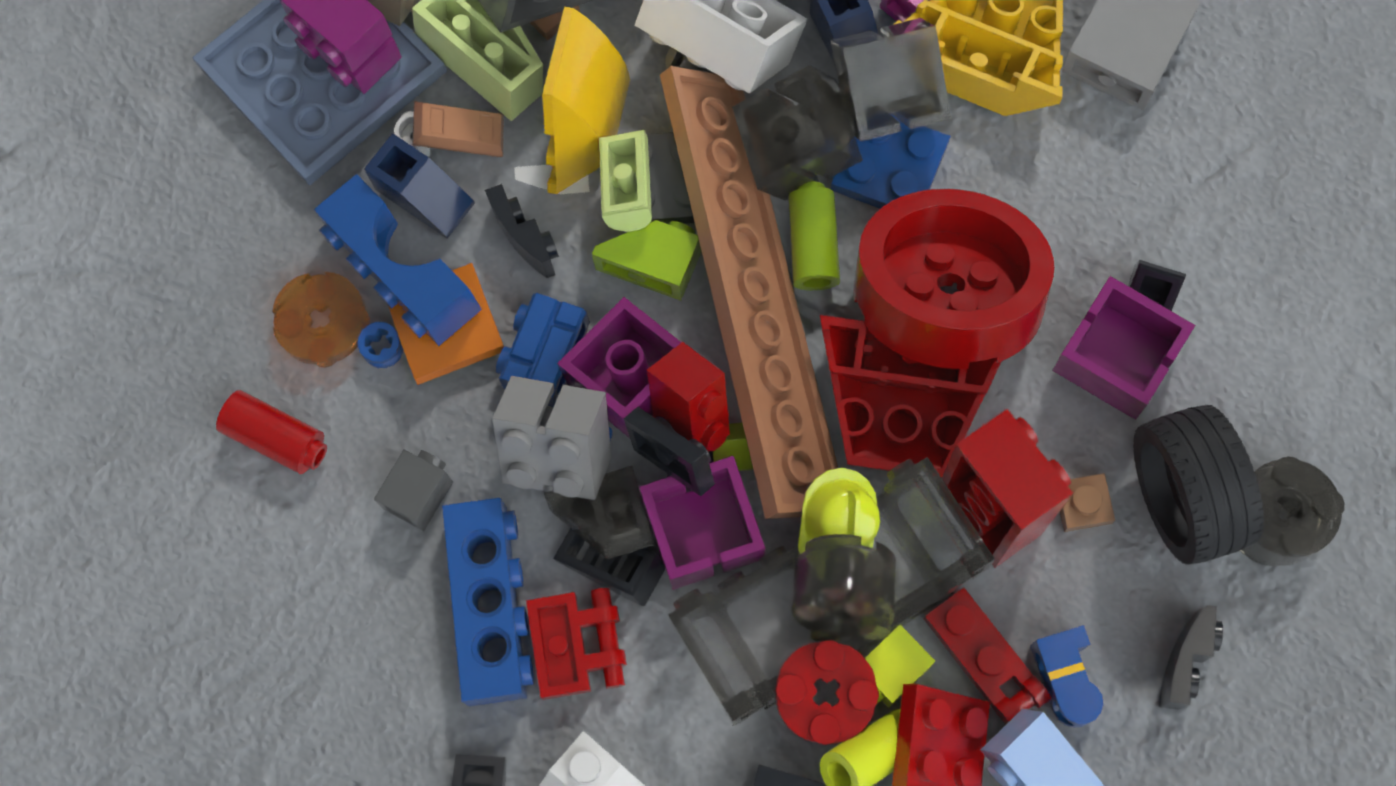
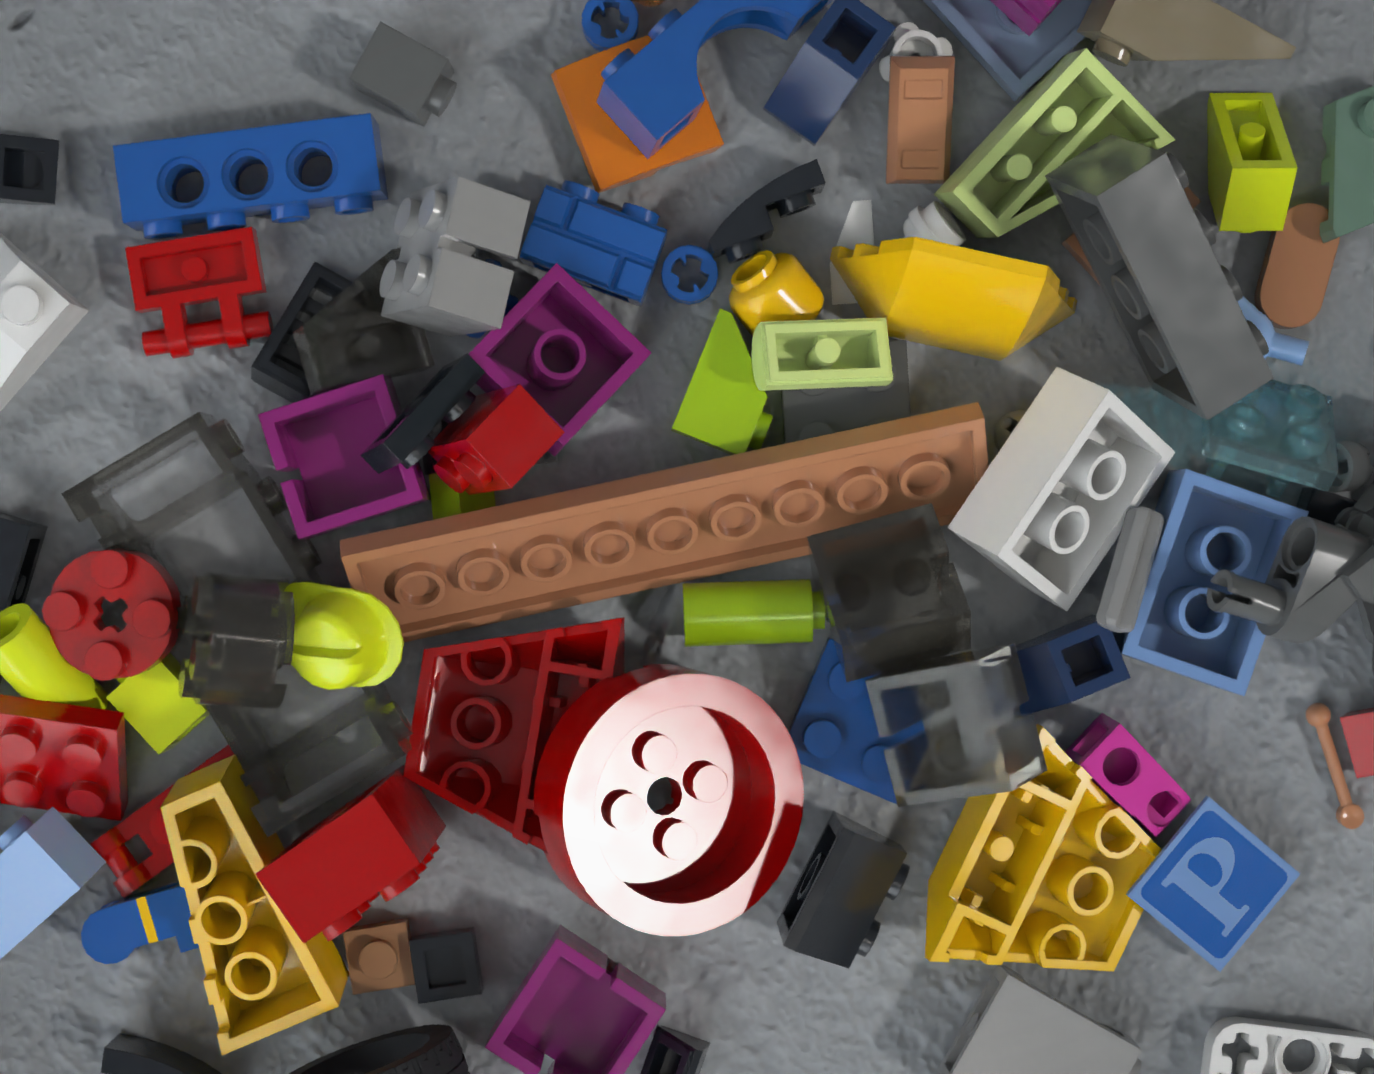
camera: 85 degrees right, 15 degrees up
(533, 123) = (933, 224): none -> white plate
(561, 274) = (707, 268): none -> blue bush
(579, 222) = (773, 290): none -> yellow head
(1013, 168) = (841, 892): none -> black slope
(1067, 586) = (251, 956): none -> yellow wedge
(1088, 450) = (446, 965): none -> black plate

